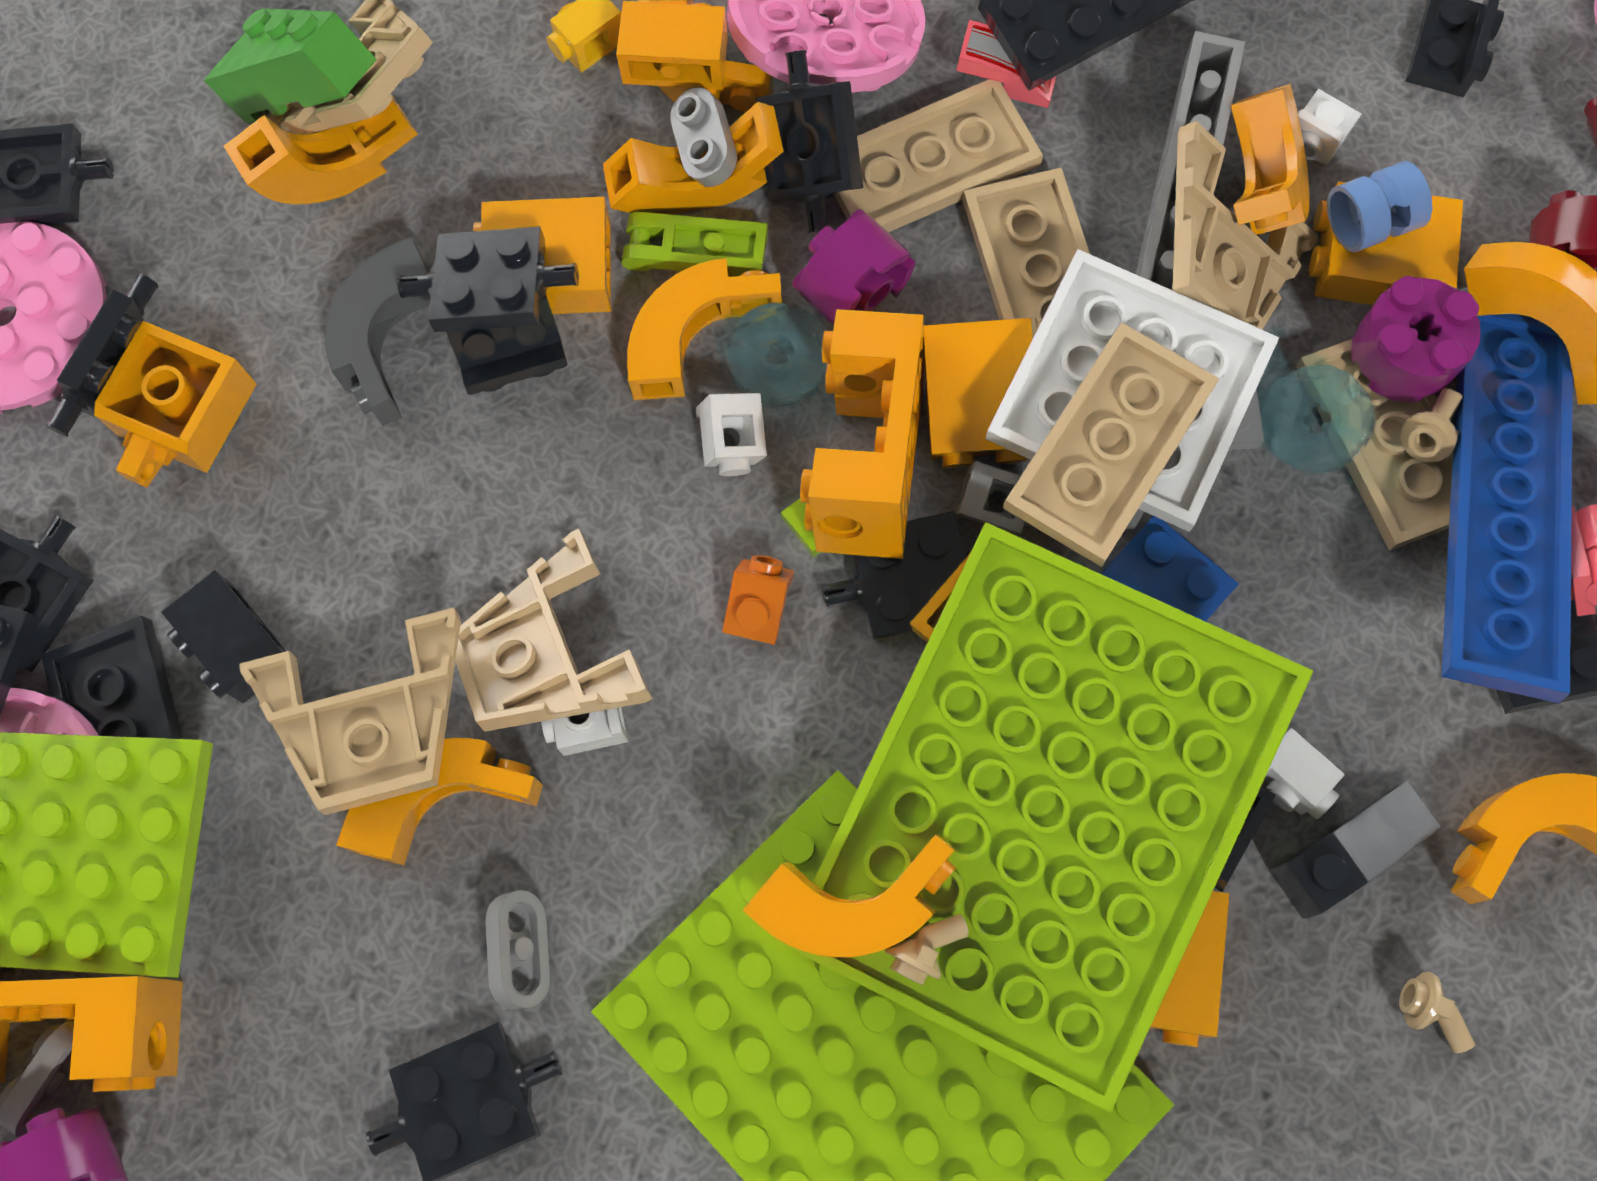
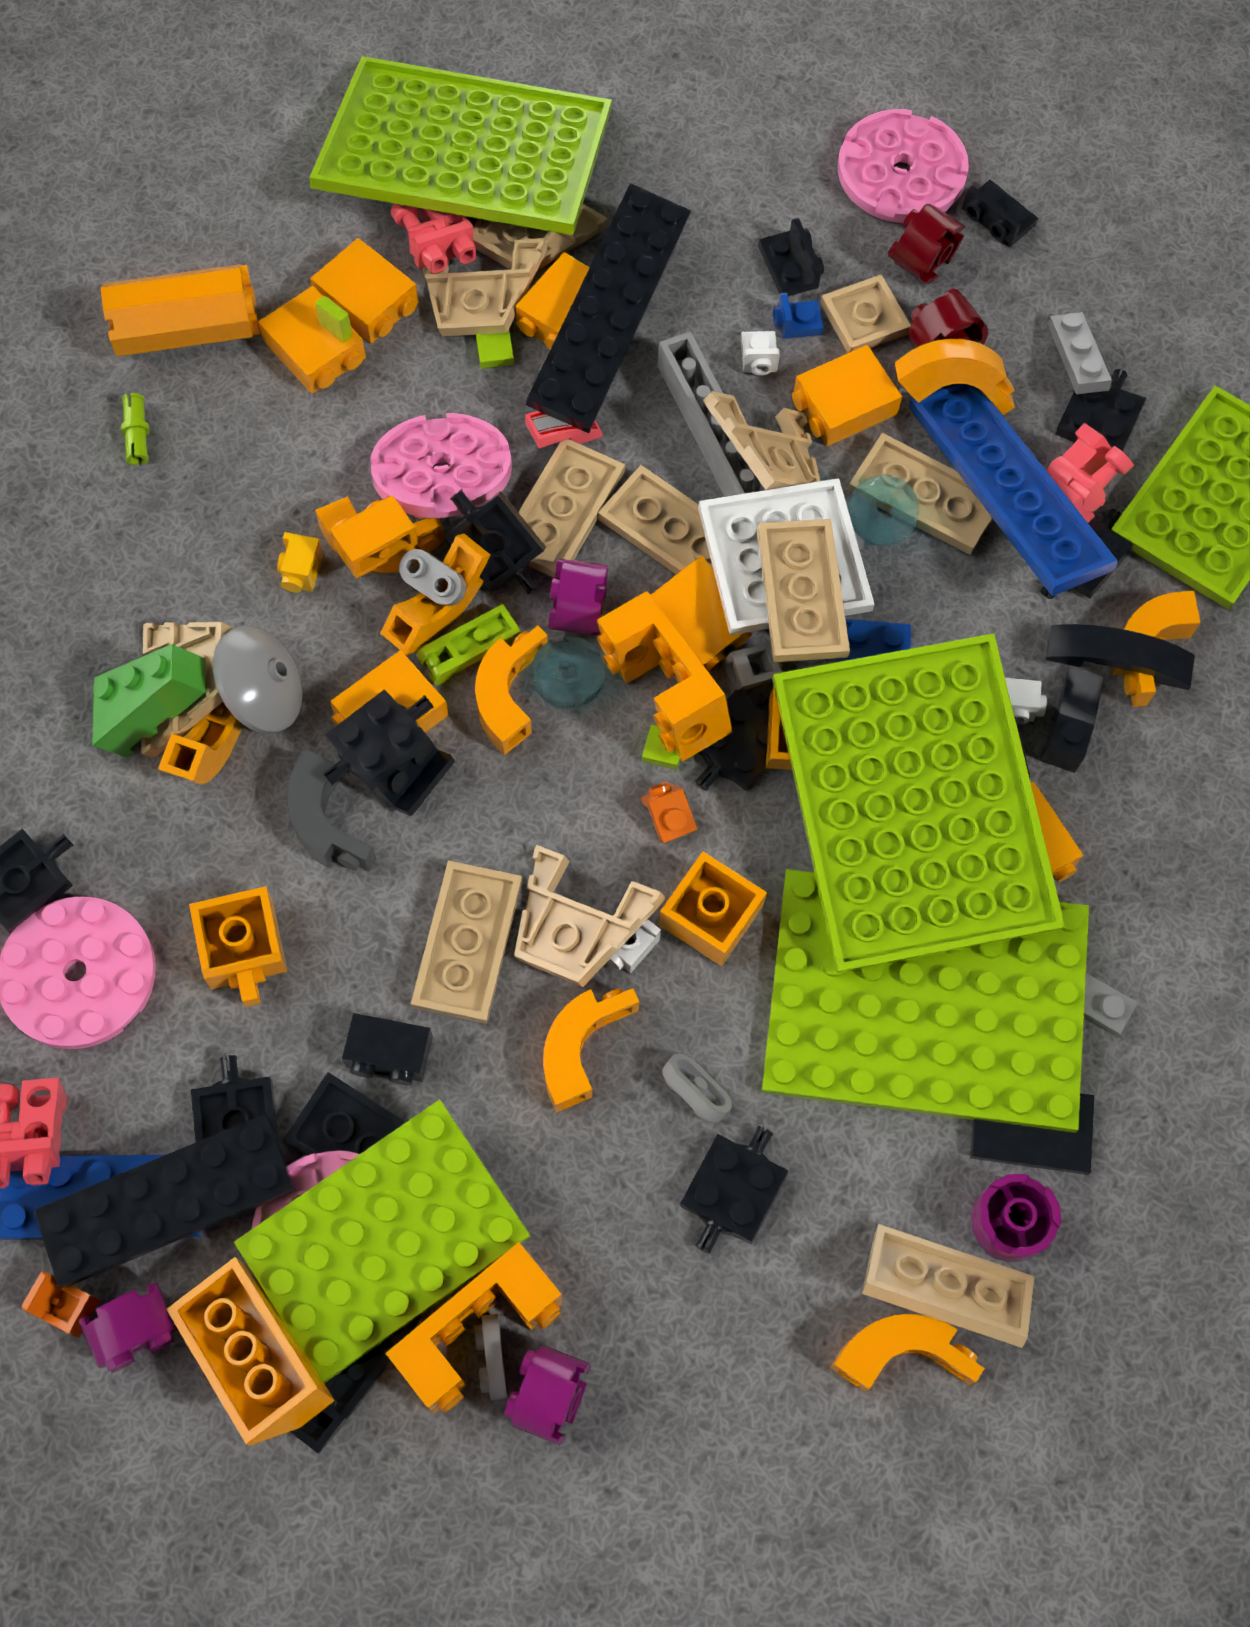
camera: 45 degrees left, 5 degrees down
(100, 353) = (180, 952): black plate -> none
(368, 739) = (526, 1036): tan wing -> none
(397, 117) = (257, 679): none -> light grey dish
(426, 564) = (466, 942): none -> tan plate
(704, 752) = (712, 908): none -> light orange brick
(740, 417) = (580, 731): white brick -> none
(830, 926) = (850, 940): light orange arch -> none
(916, 955) = (915, 916): tan plate -> none
(1273, 161) = (754, 387): light orange arch -> none
(1379, 206) = (832, 376): medium blue wheel -> none
(1404, 116) = (797, 318): none -> blue bracket
(1416, 338) = (902, 434): magenta brick -> none
(1426, 1002) = (1164, 767): tan plate -> none
(1431, 434) = (946, 479): tan plate -> none
(1490, 814) = (1123, 650): none -> black slope
(1496, 164) = (865, 314): none -> tan plate

